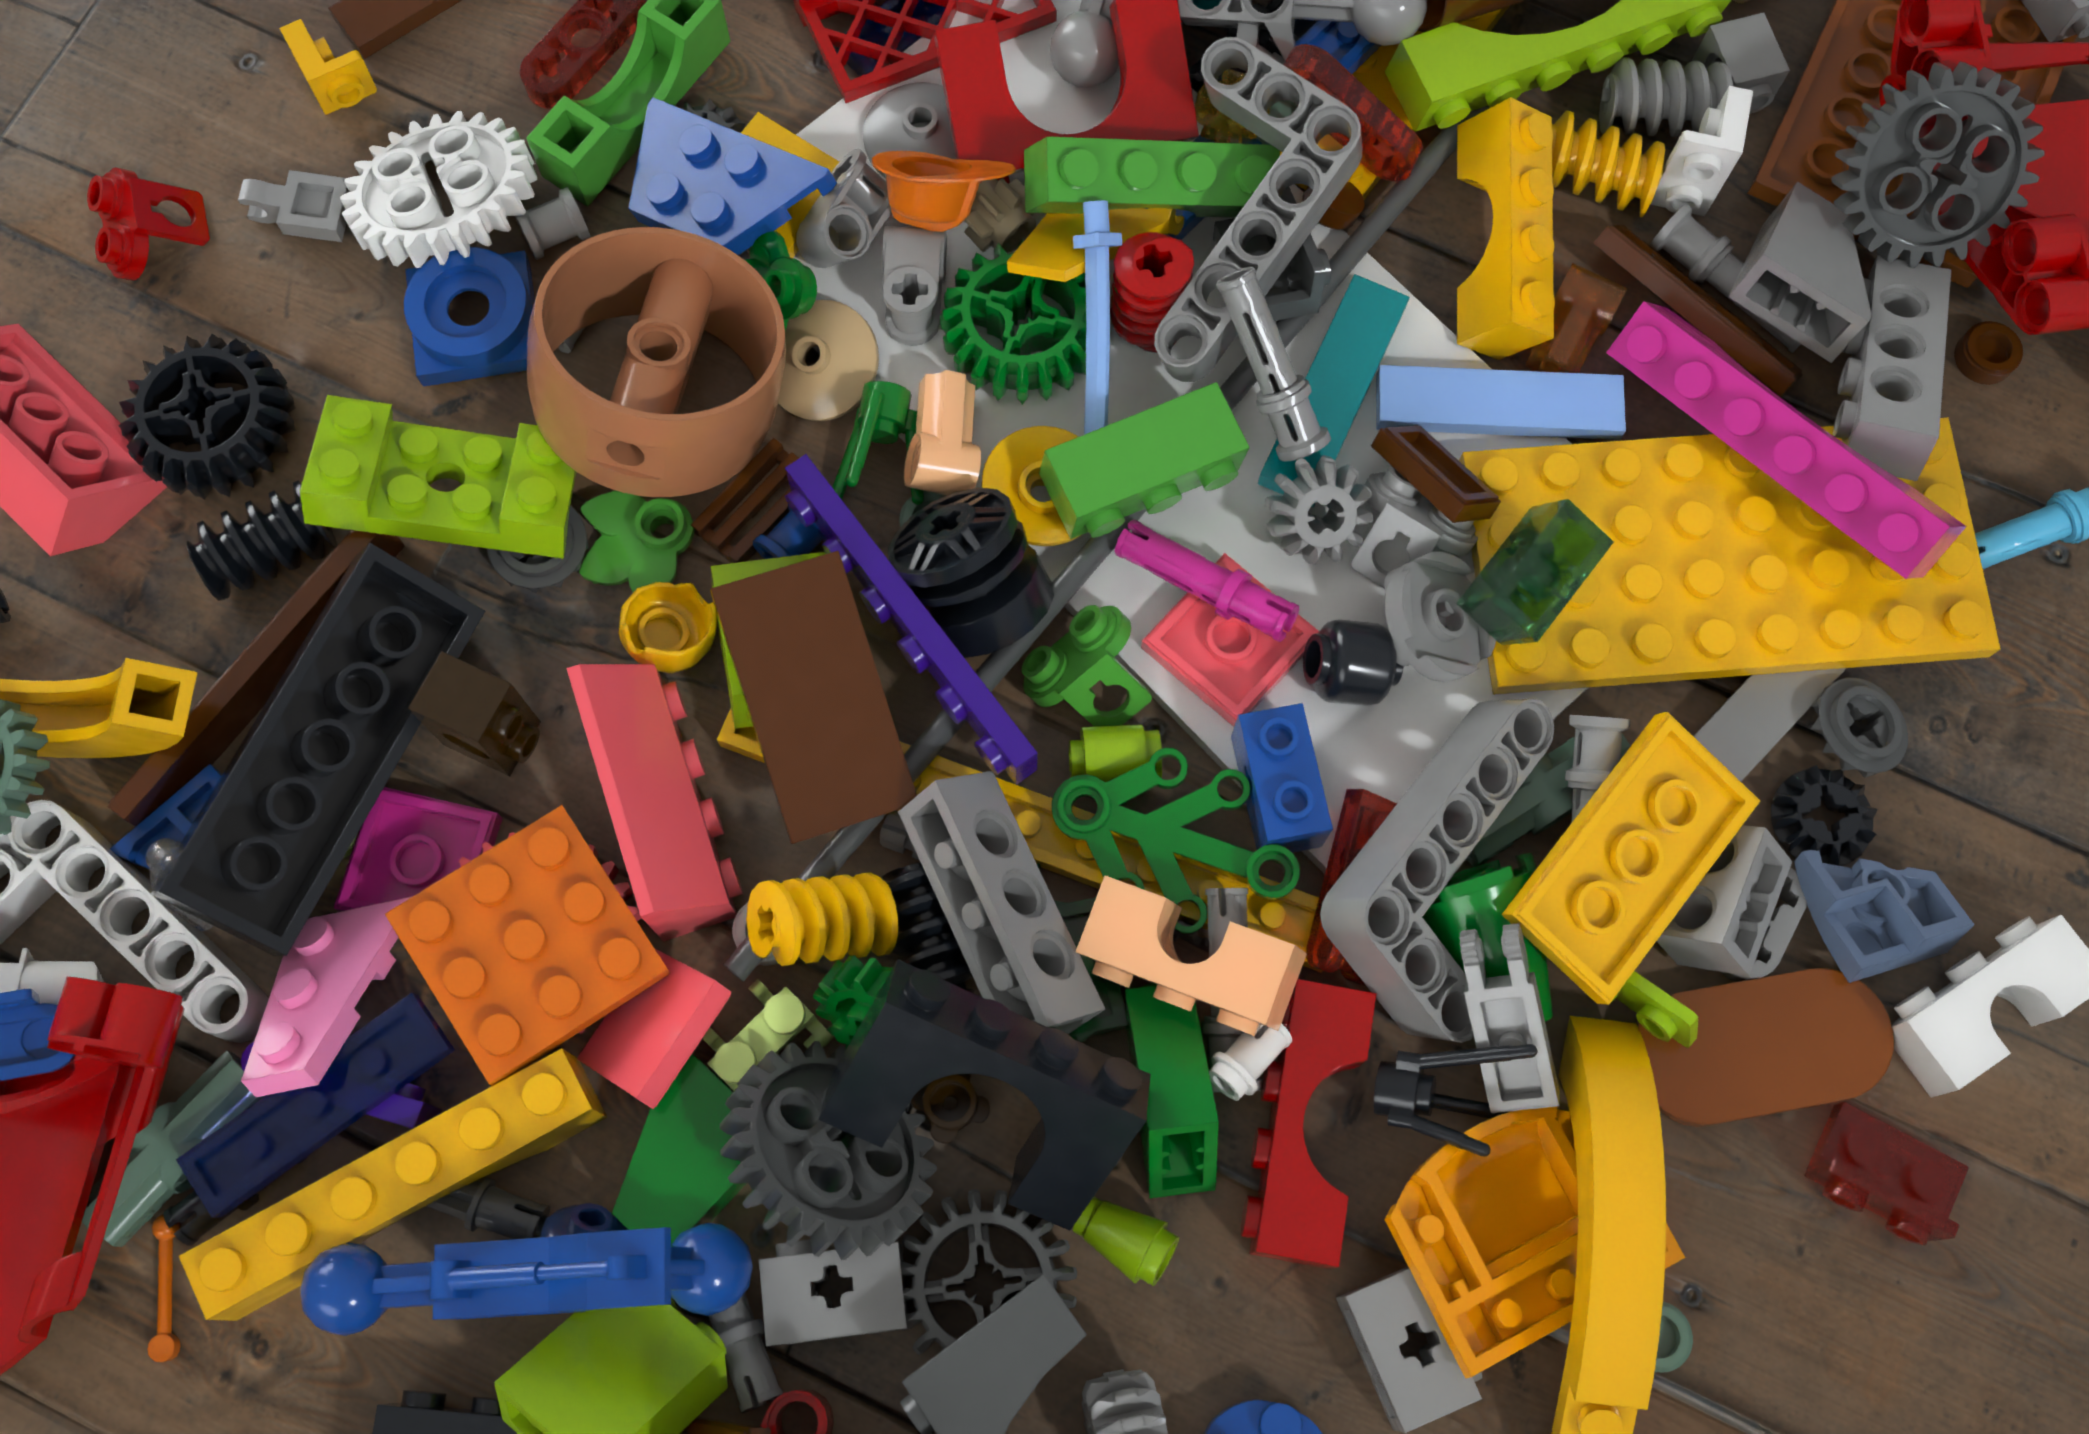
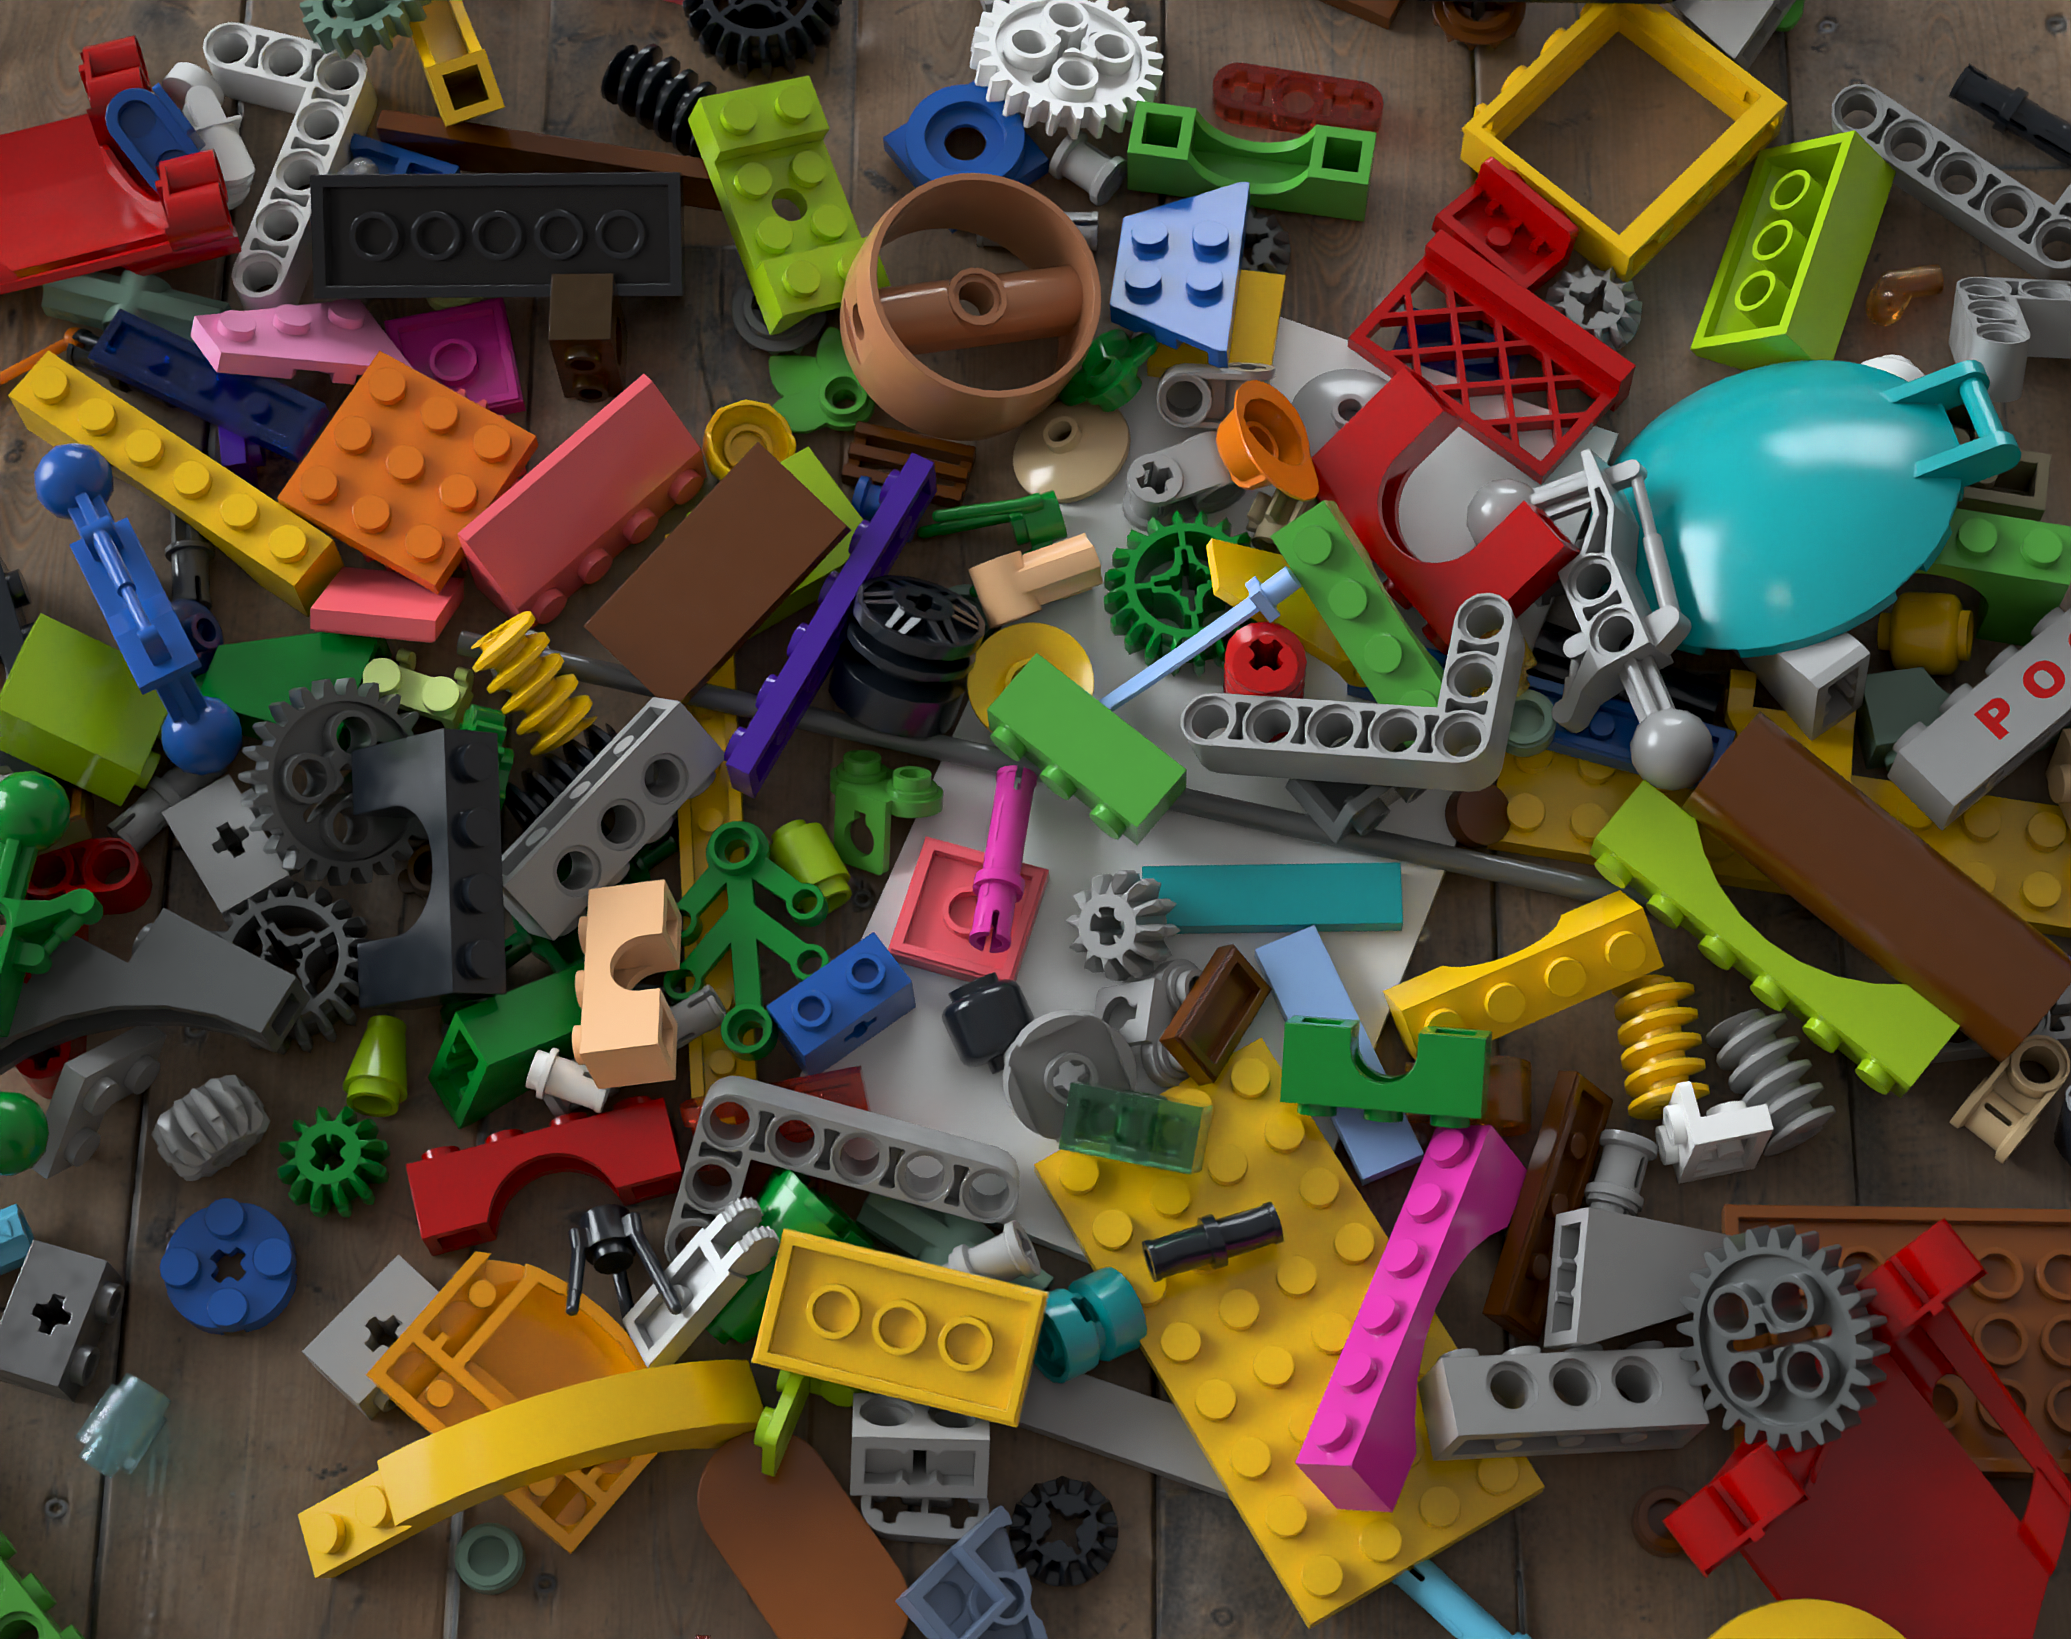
camera: 70 degrees right, 5 degrees down
(1199, 1345) = (317, 1182): none -> green gear
(1282, 391) = (1211, 830): light grey pin -> none
(1387, 142) = (1550, 774): clear red beam -> none
(1593, 316) = (1327, 1072): none -> green arch
(1652, 565) = (1212, 1241): none -> black pin
(1663, 684) = (1088, 1324): none -> teal wheel
(1751, 55) = (1859, 1142): light grey brick -> none
(1882, 741) = (1199, 1518): dark grey gear -> none

